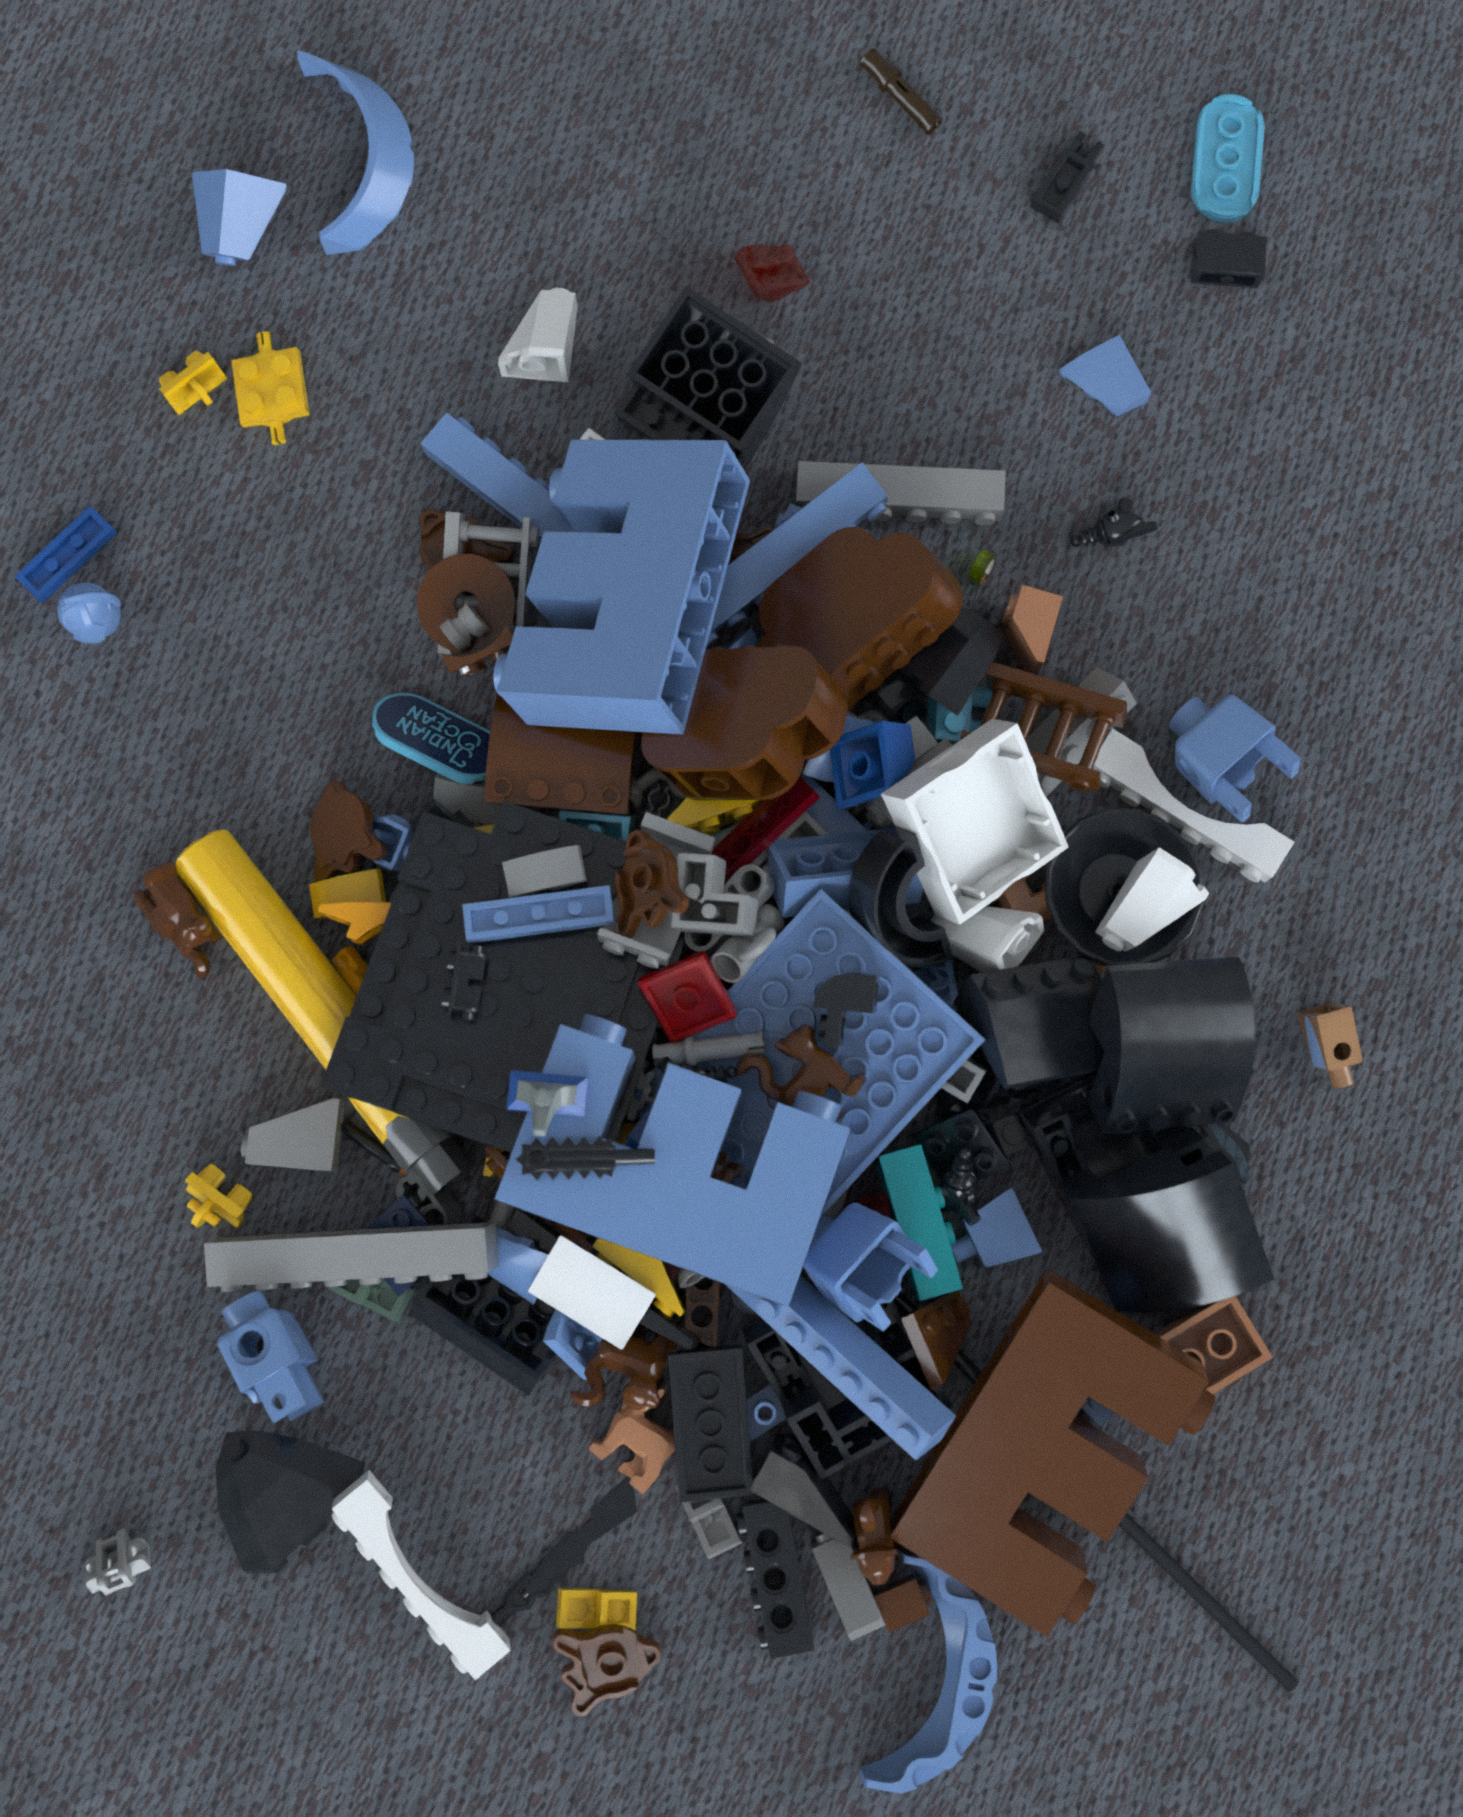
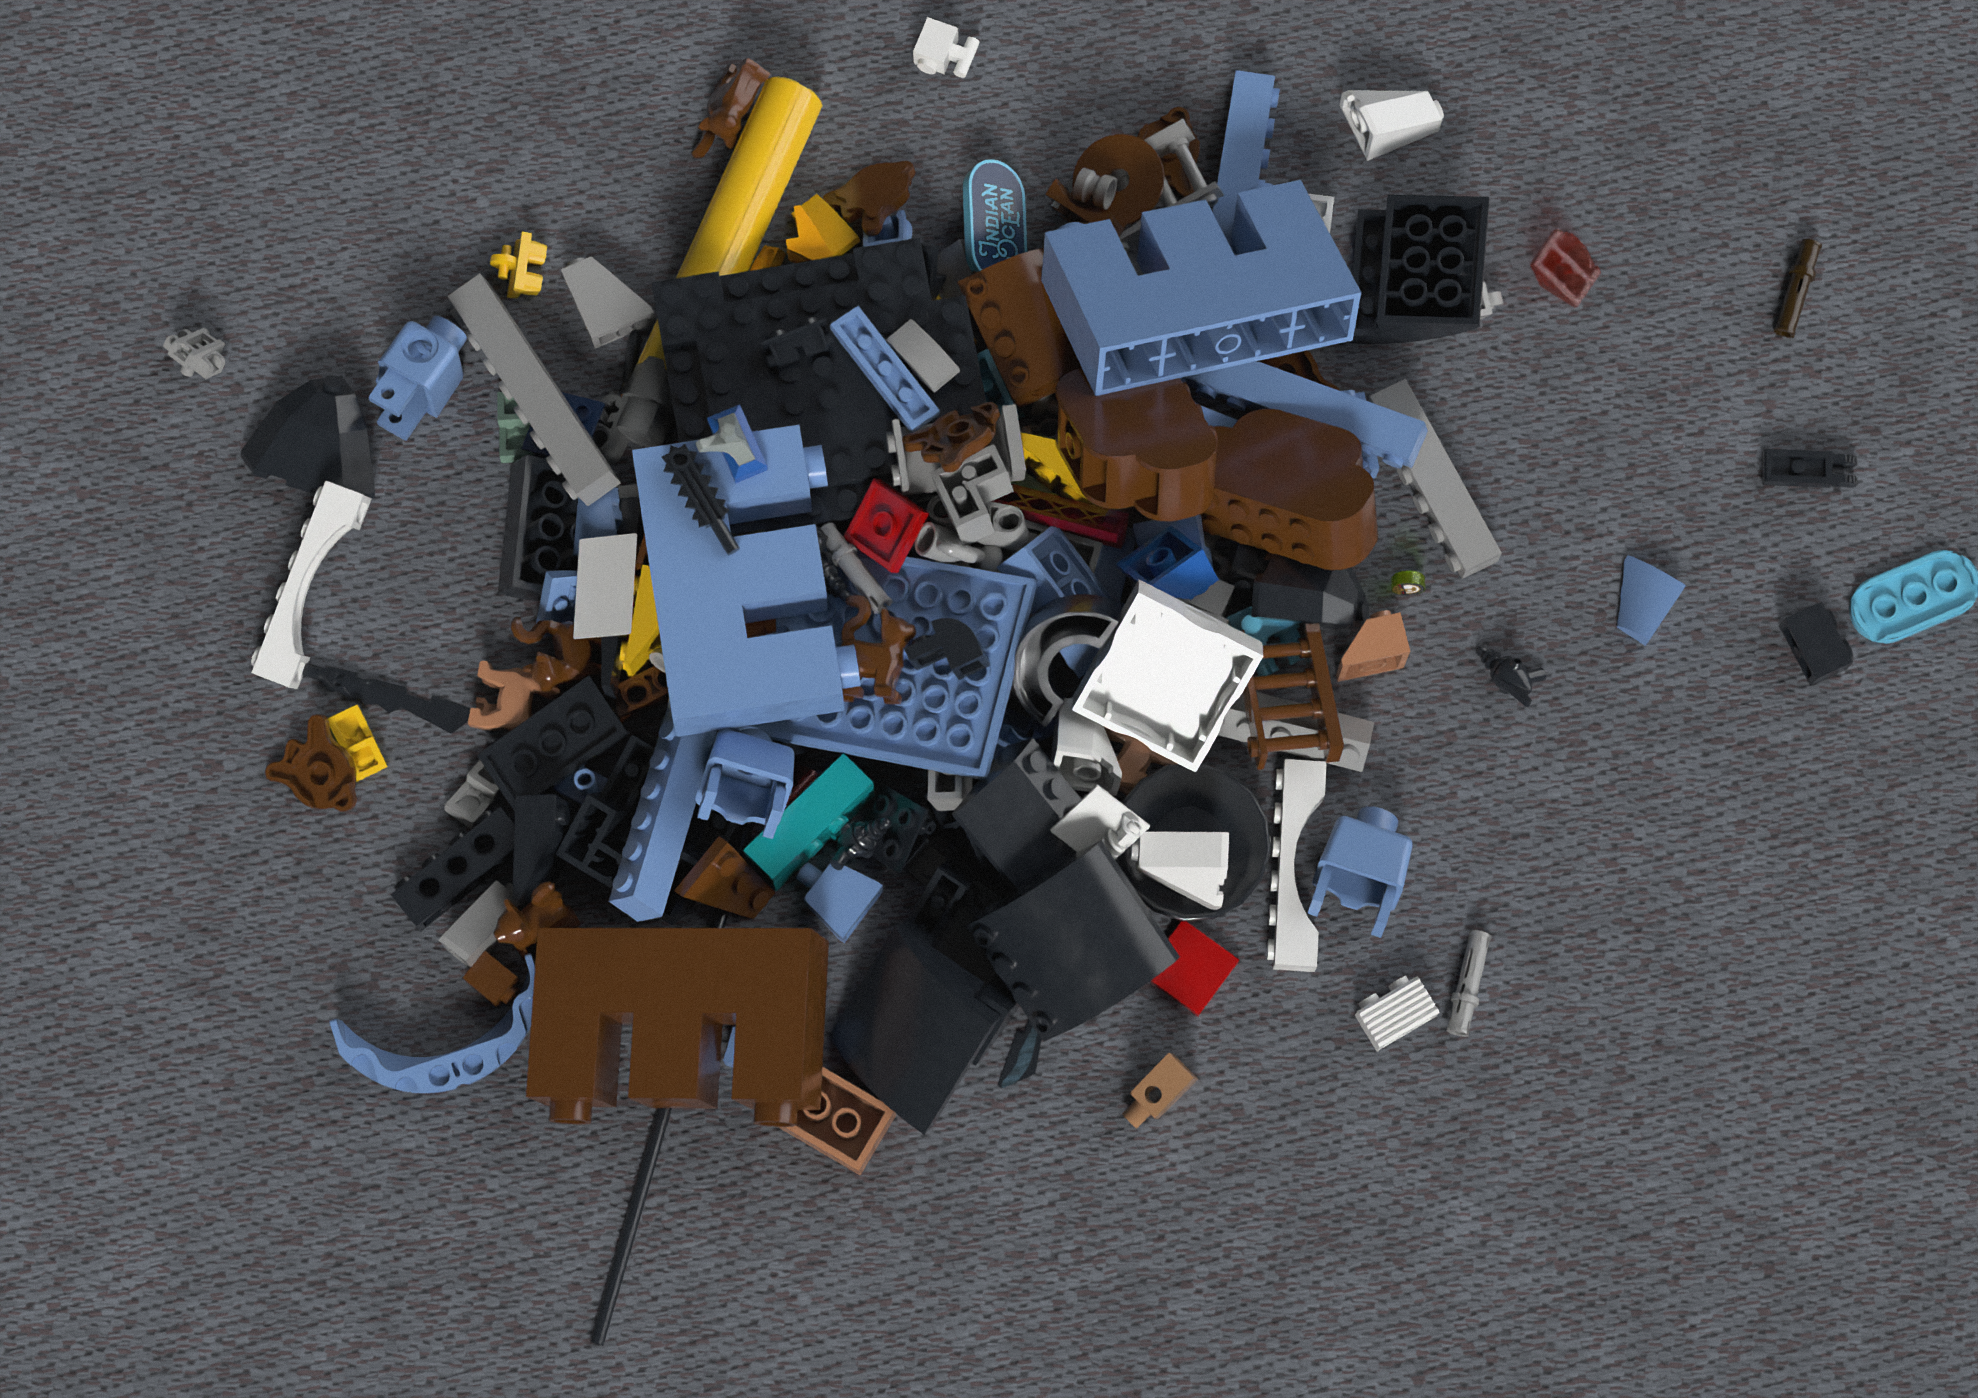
camera: 60 degrees right, 5 degrees down
(234, 694) = (939, 46): none -> white brick
(1083, 957) = (1097, 819): none -> white hinge
(1231, 937) = (1198, 971): none -> red tile
(1365, 797) = (1396, 1012): none -> white brick
(1373, 723) = (1465, 997): none -> light grey pin

